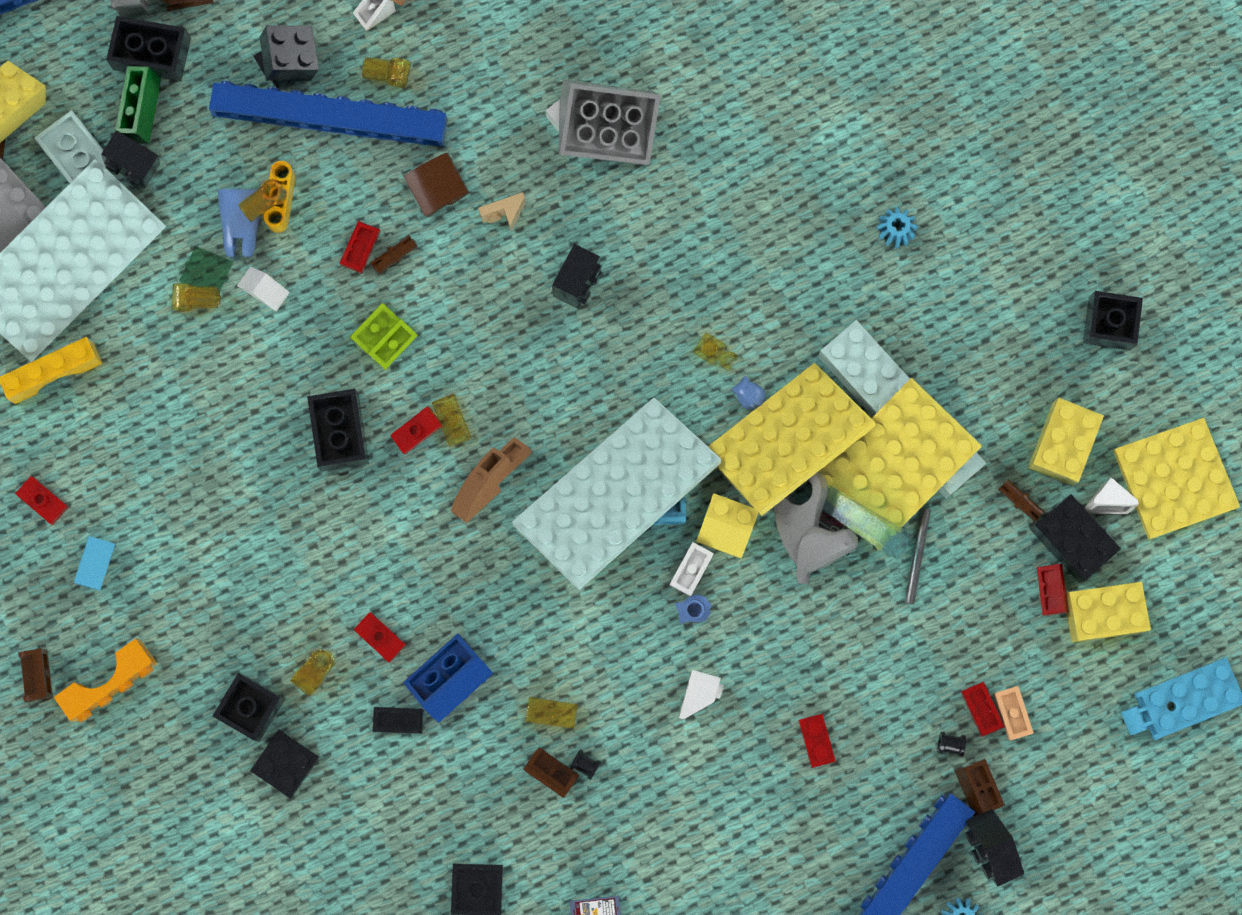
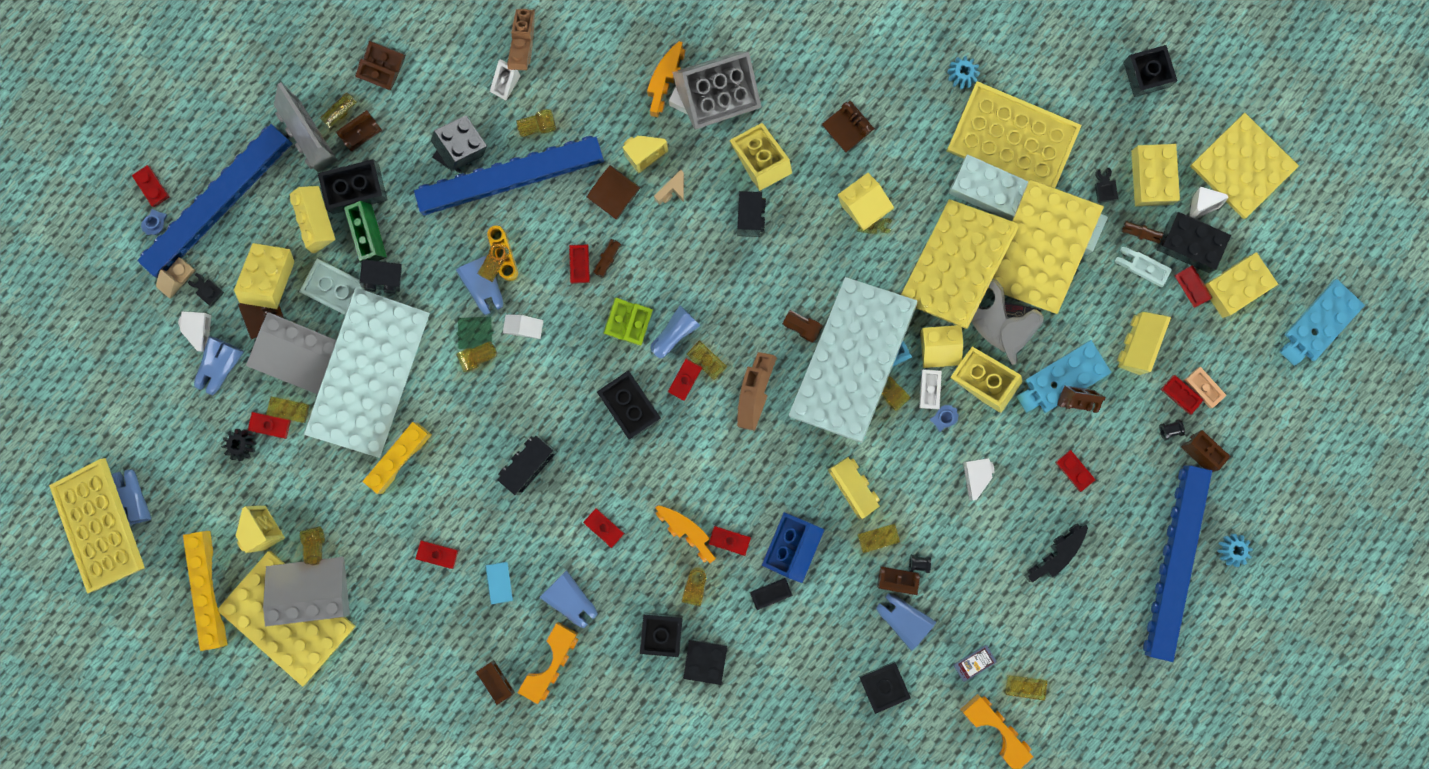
camera: 20 degrees left, 5 degrees up
(86, 62) = (312, 218): none -> light yellow slope
(164, 619) = (569, 600): none -> medium blue piece
(190, 444) = (526, 465): none -> black brick
(243, 556) = (603, 527): none -> red plate
(332, 593) = (680, 525): none -> light orange slope
(437, 367) = (678, 327): none -> medium blue piece
(491, 153) = (644, 151): none -> light yellow slope
(537, 823) = (906, 621): none -> medium blue piece
(545, 85) = (664, 73): none -> light orange slope
(550, 640) = (854, 487): none -> light yellow slope
(582, 435) = (807, 328): none -> reddish brown piece
(622, 219) = (761, 156): none -> light yellow slope
(647, 556) = (895, 395): none -> clear yellow piece
(715, 321) = (865, 201): none -> light yellow slope
(737, 229) = (848, 126): none -> reddish brown hinge
(749, 394) = (912, 243): medium blue animal -> none
(761, 825) = (1064, 548): none -> black slope
(762, 587) = (987, 379): none -> light yellow slope
(859, 658) = (1080, 399): none -> reddish brown hinge
(862, 625) = (1076, 369): none -> medium azure hinge
(867, 523) = (1043, 299): clear light blue slope -> none
(917, 556) = (1086, 306): flat silver bar -> none
(922, 325) = (1014, 135): none -> light yellow plate
(961, 626) = (1143, 342): none -> light yellow slope
(993, 848) = (1238, 490): black brick -> none
(1001, 432) = (1105, 189): none -> black plate
(1006, 541) = (1144, 267): none -> light aqua hinge

